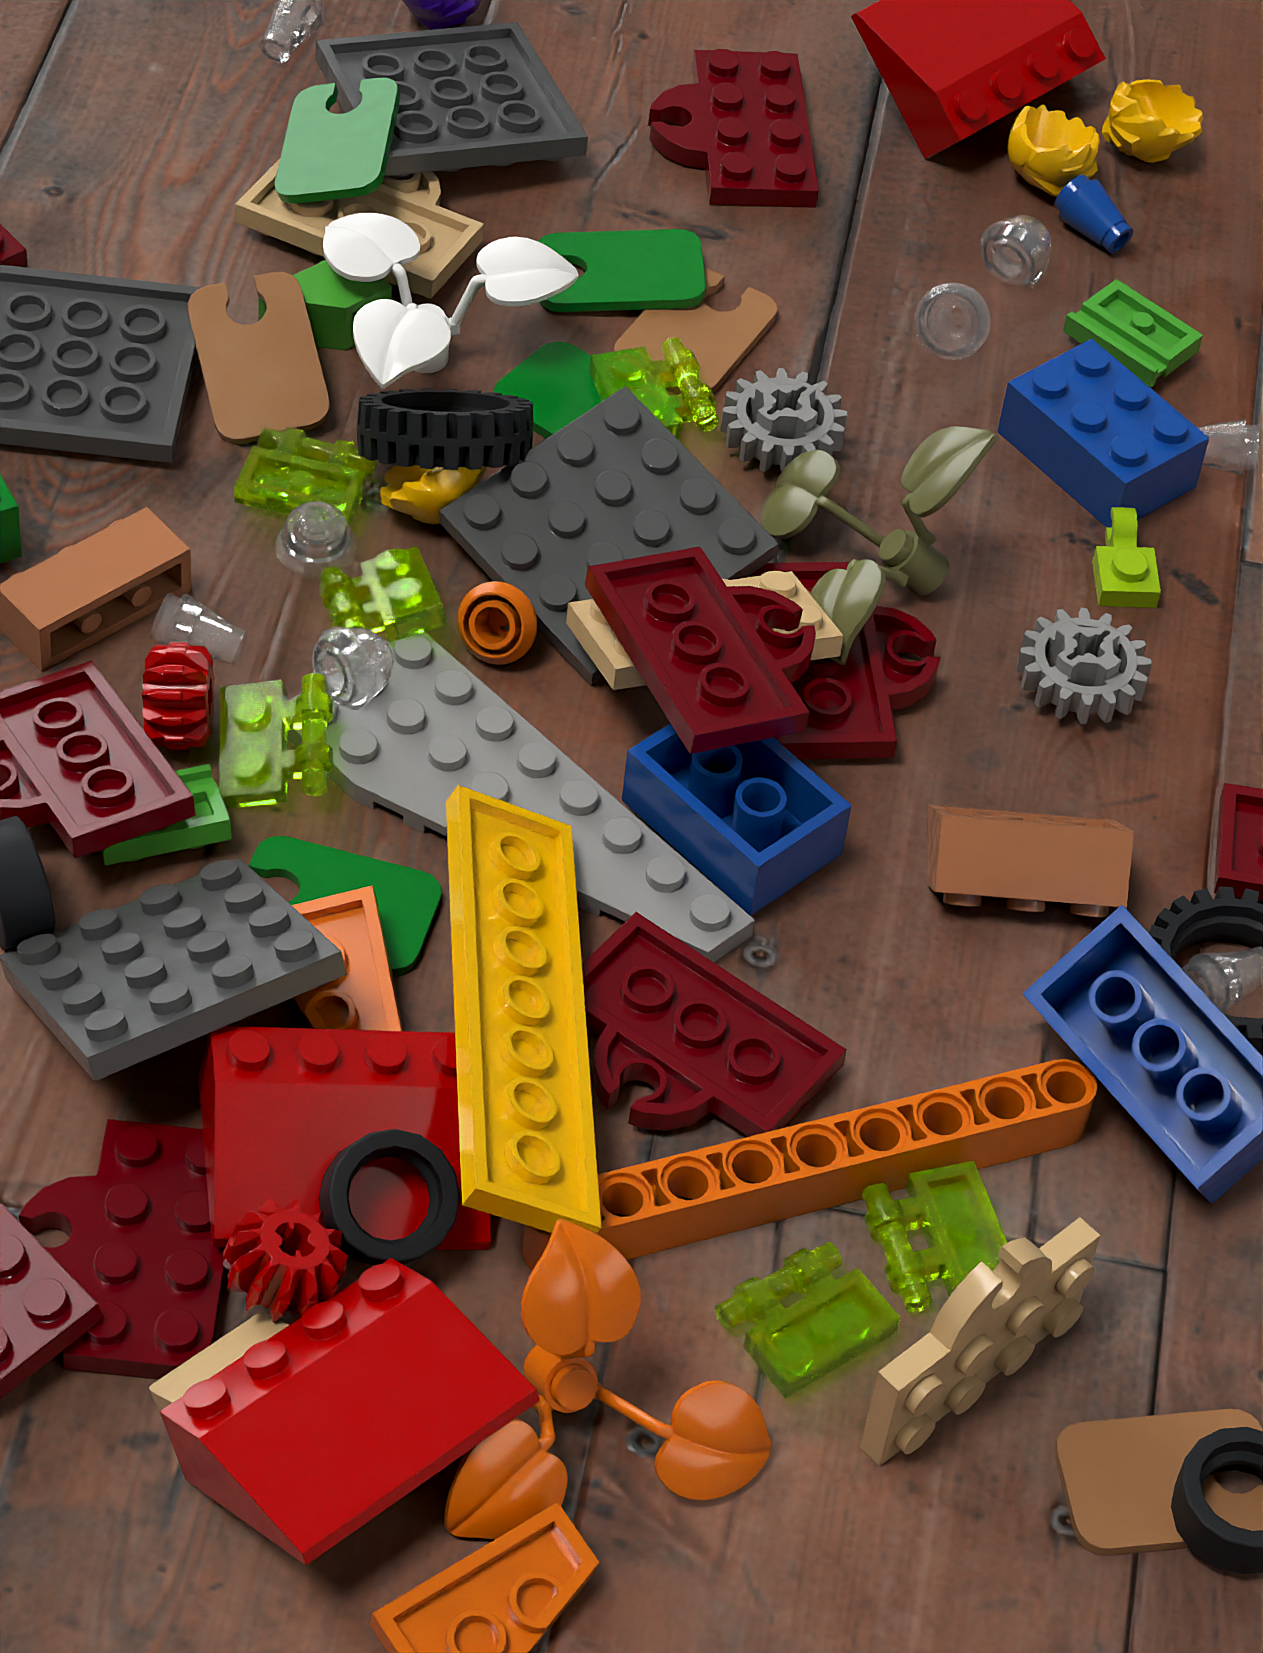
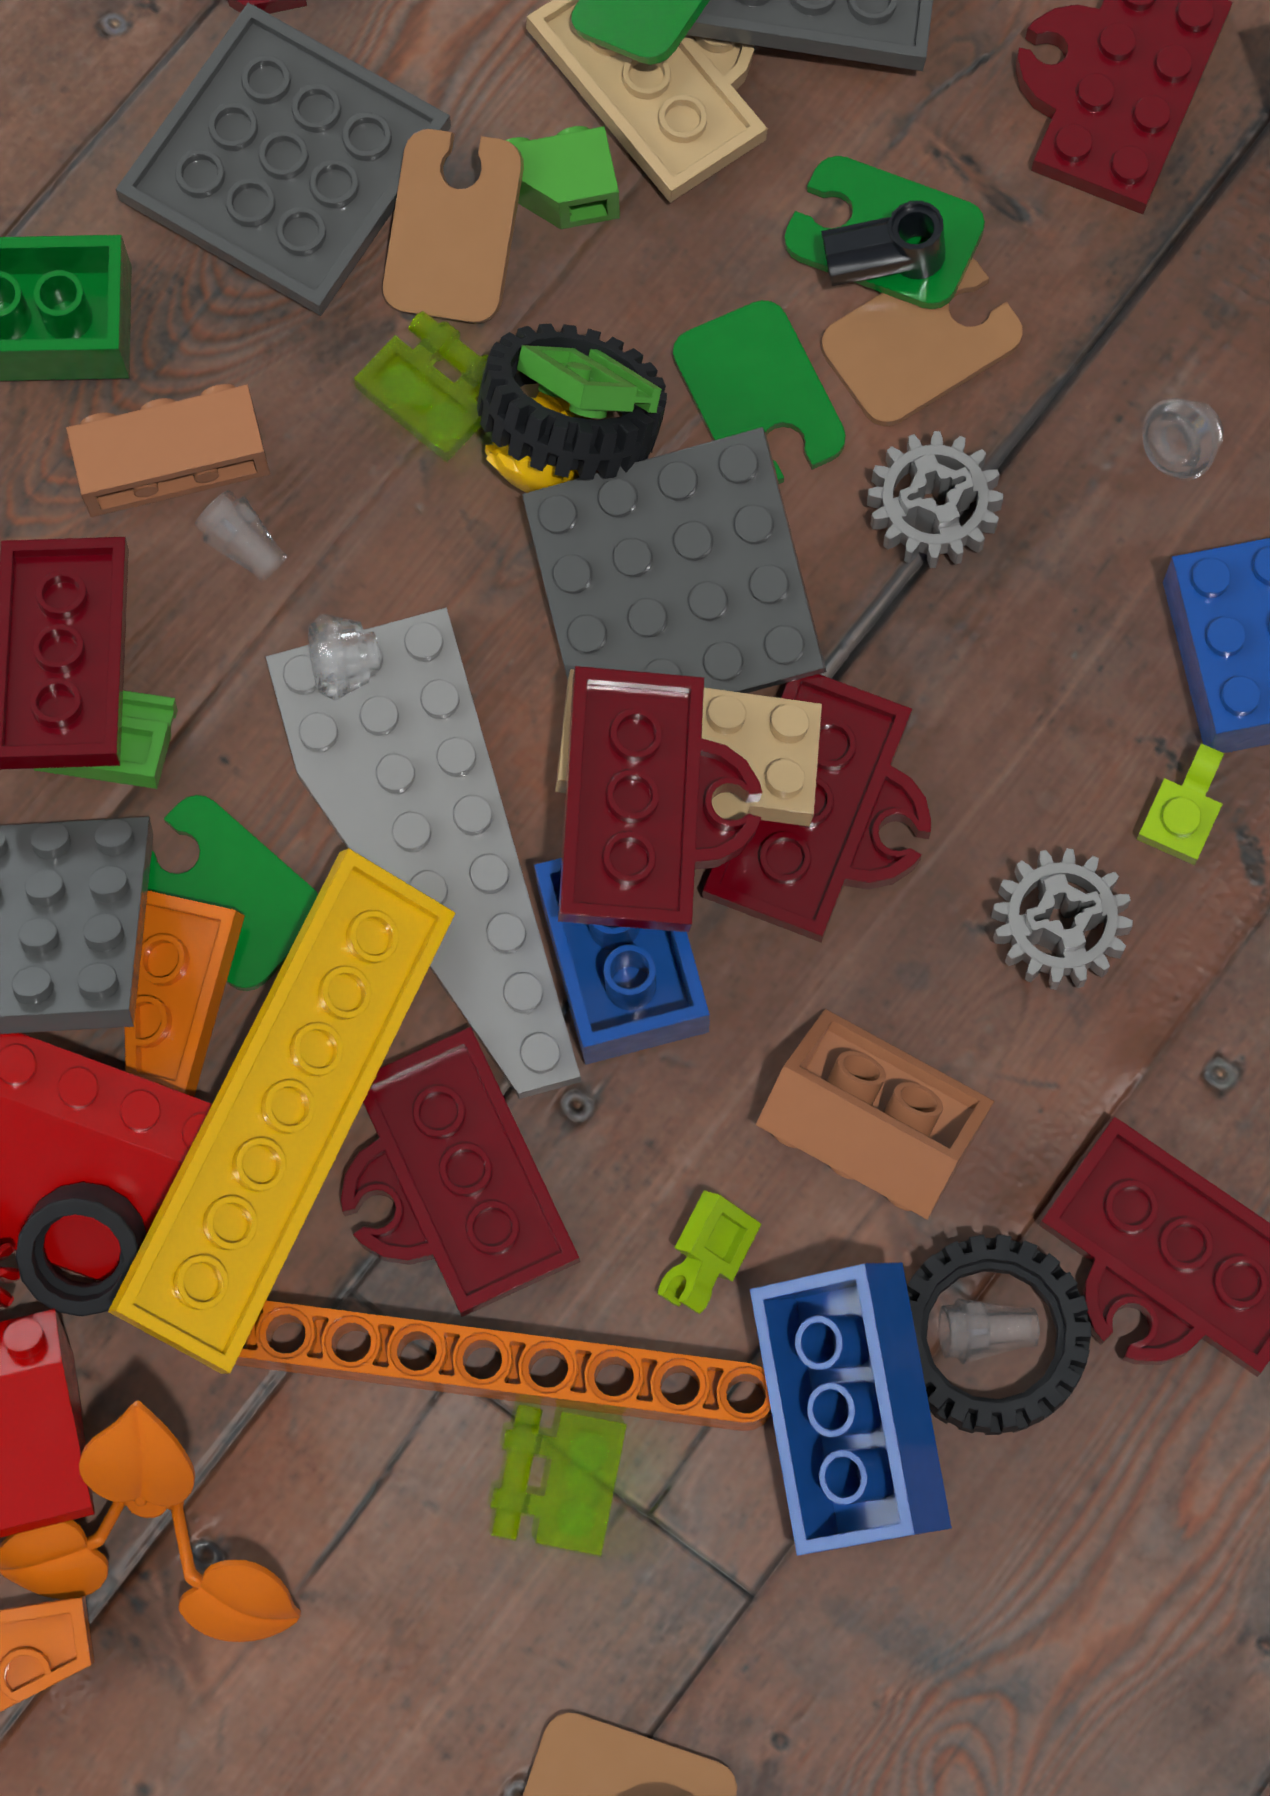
camera: 35 degrees right, 25 degrees up
(178, 695) = (174, 617): red gear -> none
(255, 741) = (227, 692): clear neon green plate -> none
(315, 539) = (407, 484): clear cone -> none
(388, 597) = (445, 570): clear neon green plate -> none
(410, 337) = (569, 293): white plant -> none
(463, 391) = (587, 383): none -> bright green plate
(485, 621) = (519, 642): orange cone -> none
(649, 259) = (880, 246): none -> black piece
(650, 378) = (806, 407): clear neon green plate -> none
(815, 1333) = (402, 1526): clear neon green plate -> none
(907, 556) = (992, 680): olive plant -> none
(958, 1000) = (714, 1247): none -> lime plate
(978, 1333) = (485, 1624): tan plate -> none

